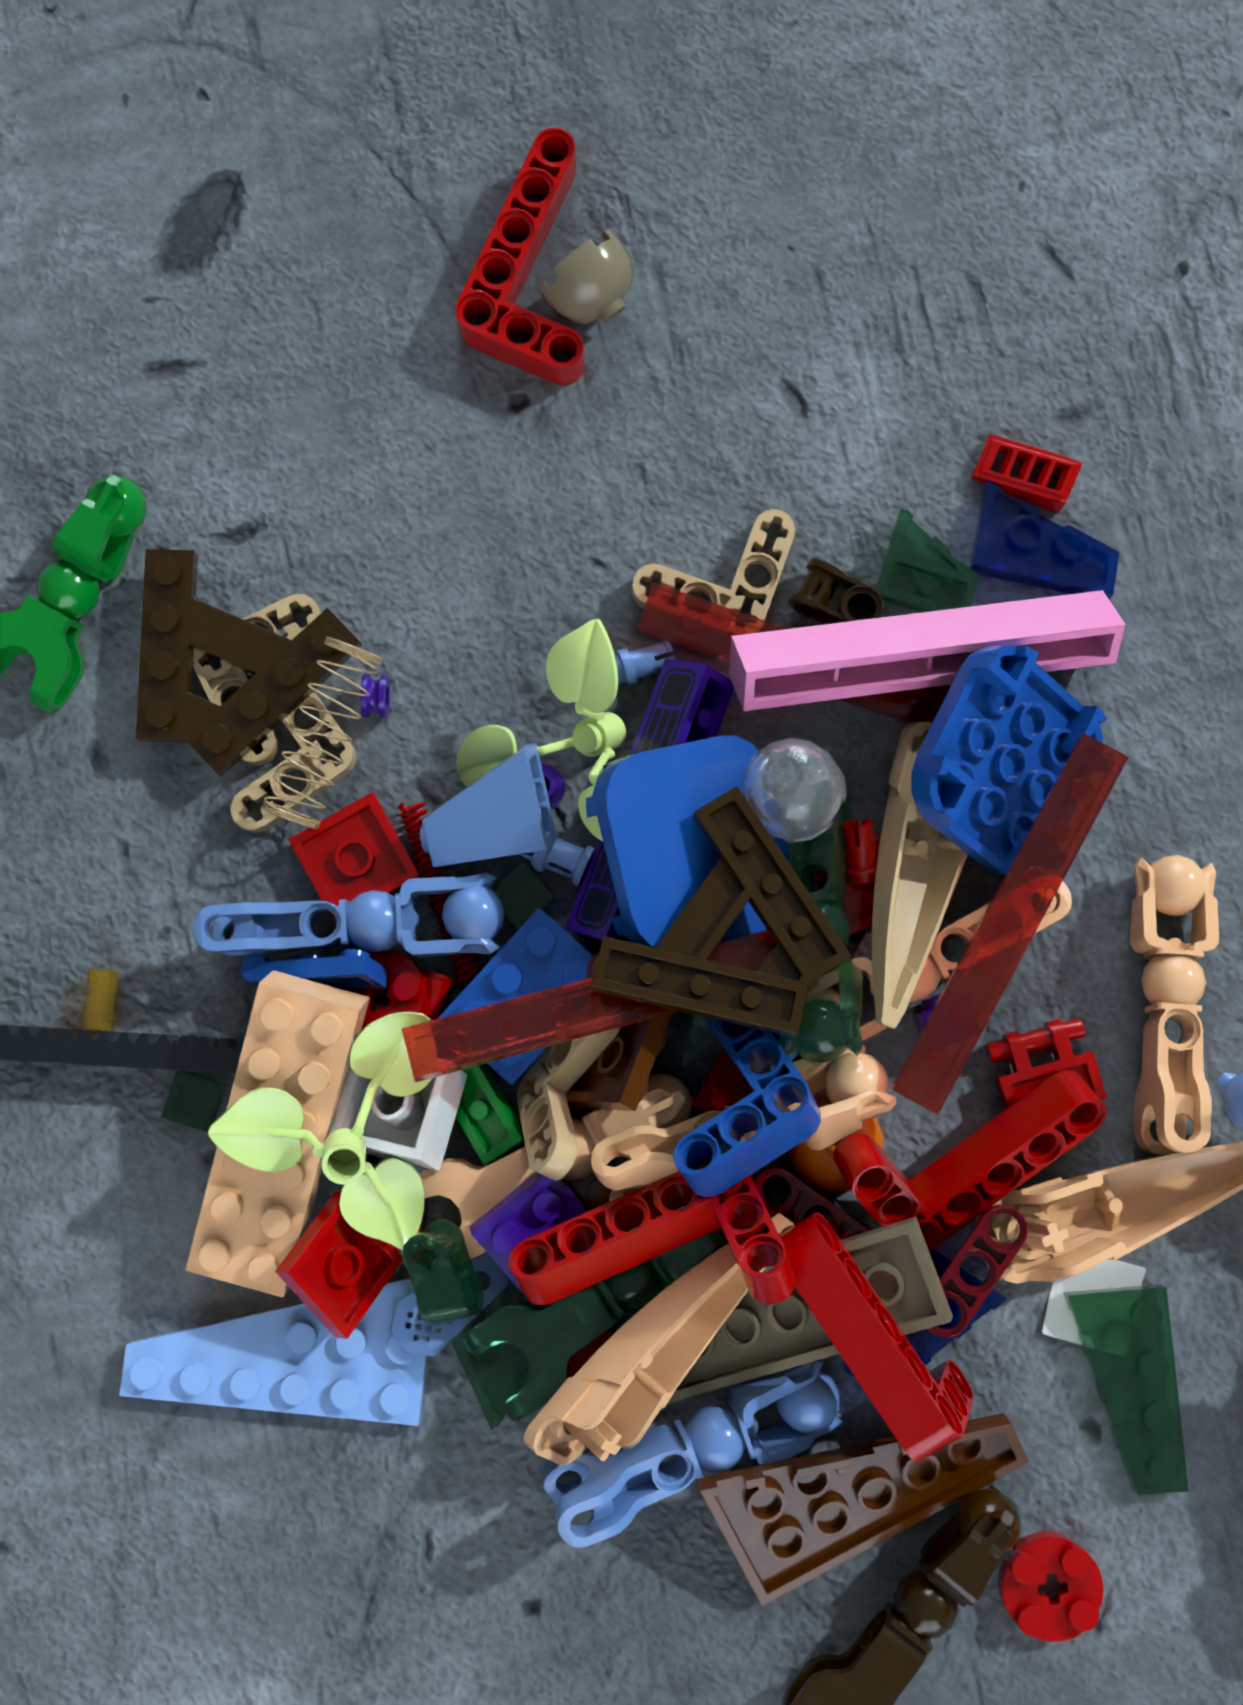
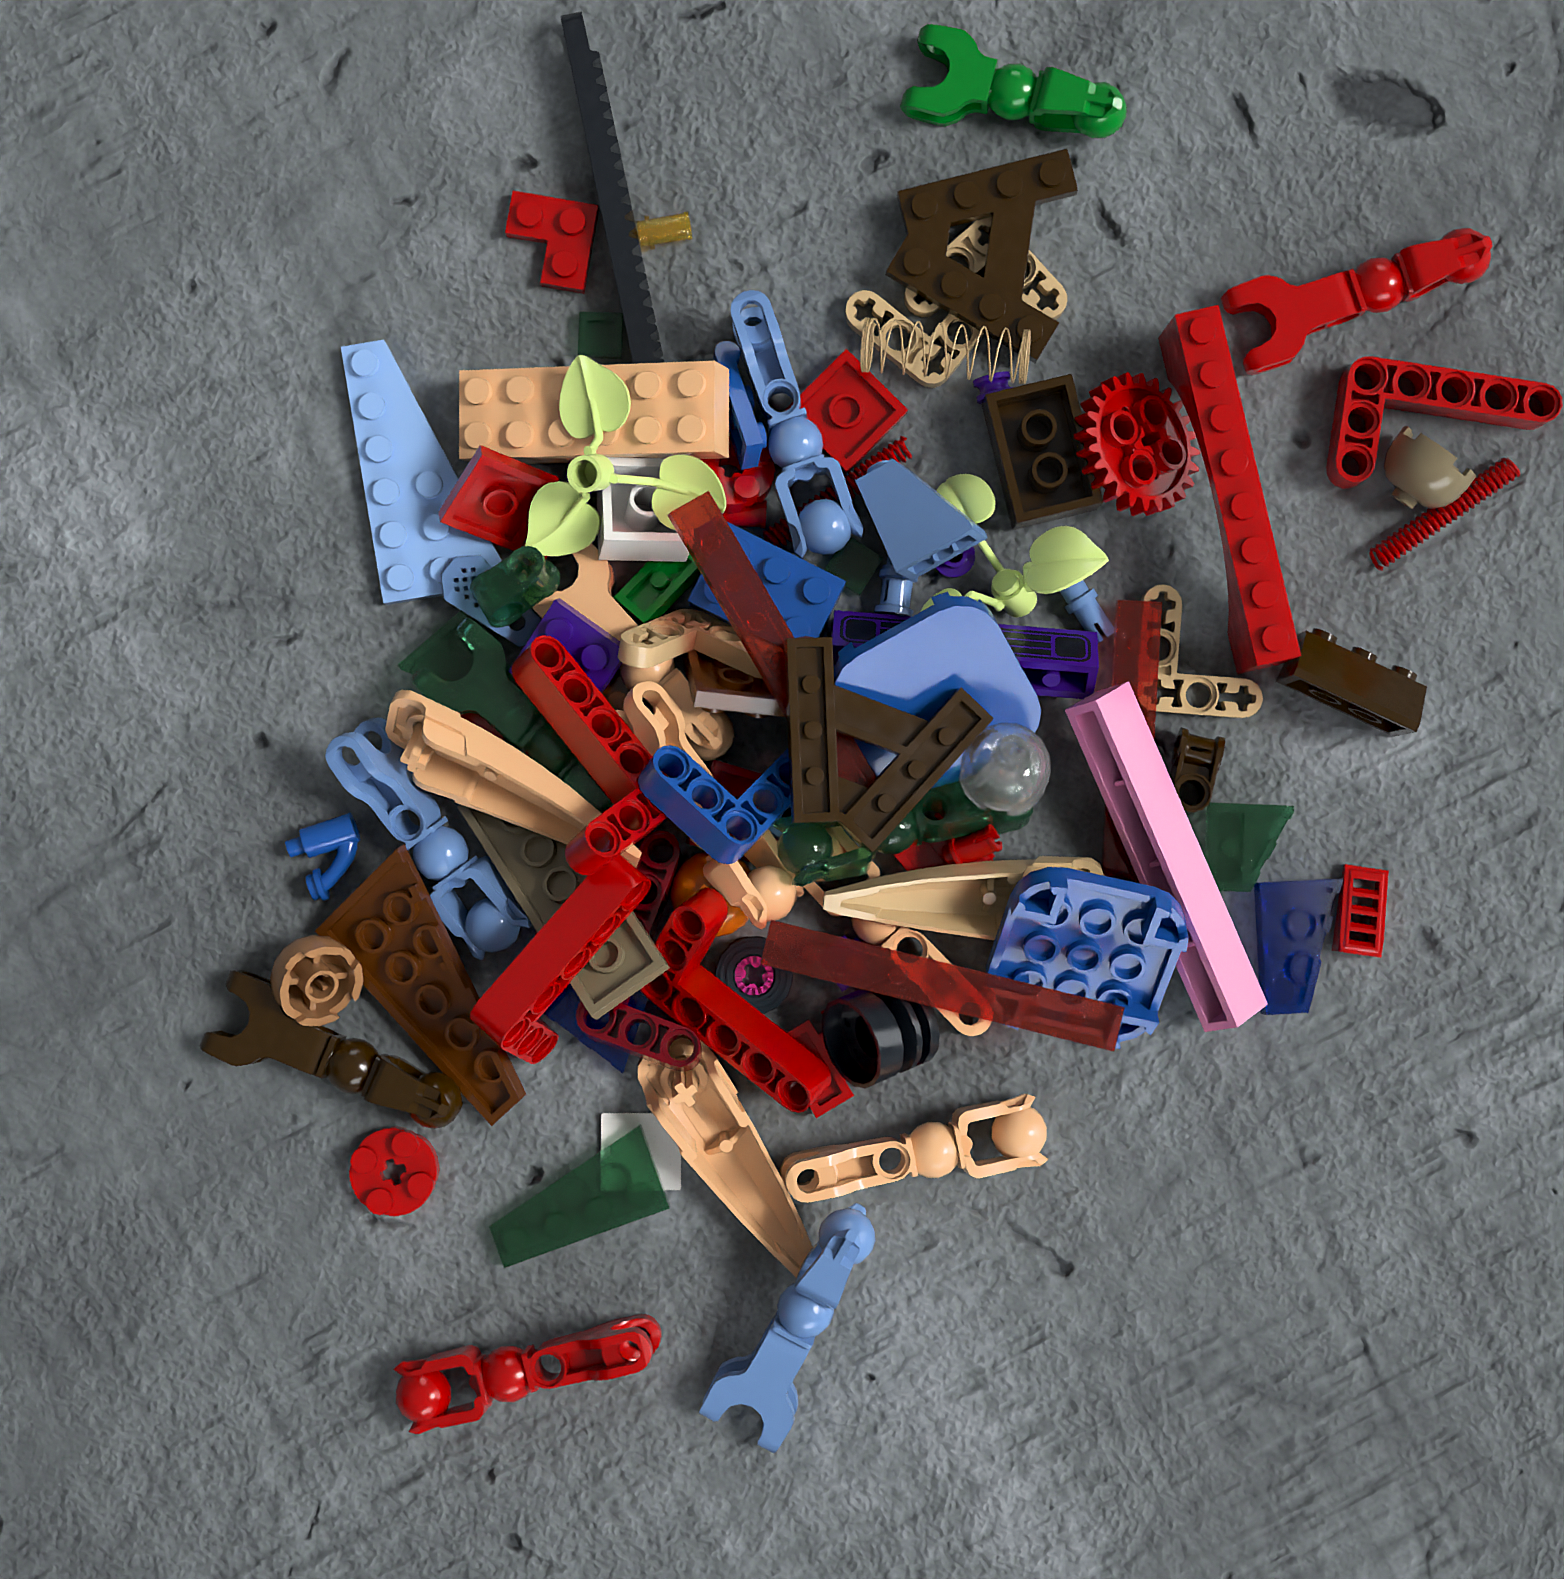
camera: 80 degrees right, 5 degrees up
(66, 1107) = (567, 230): none -> red plate
(385, 282) = (1335, 299): none -> red piece
(426, 471) = (1205, 380): none -> red arch
(458, 663) = (1037, 451): none -> dark brown brick
(479, 563) = (1136, 444): none -> red gear
(639, 302) = (1452, 511): none -> red piece
(659, 1566) = (323, 837): none -> blue plant
(790, 412) = (1355, 684): none -> dark brown slope
(819, 1623) = (315, 979): none -> medium nougat cylinder
(922, 1146) = (731, 972): none -> black bush
(1044, 1009) = (878, 1036): none -> black wheel

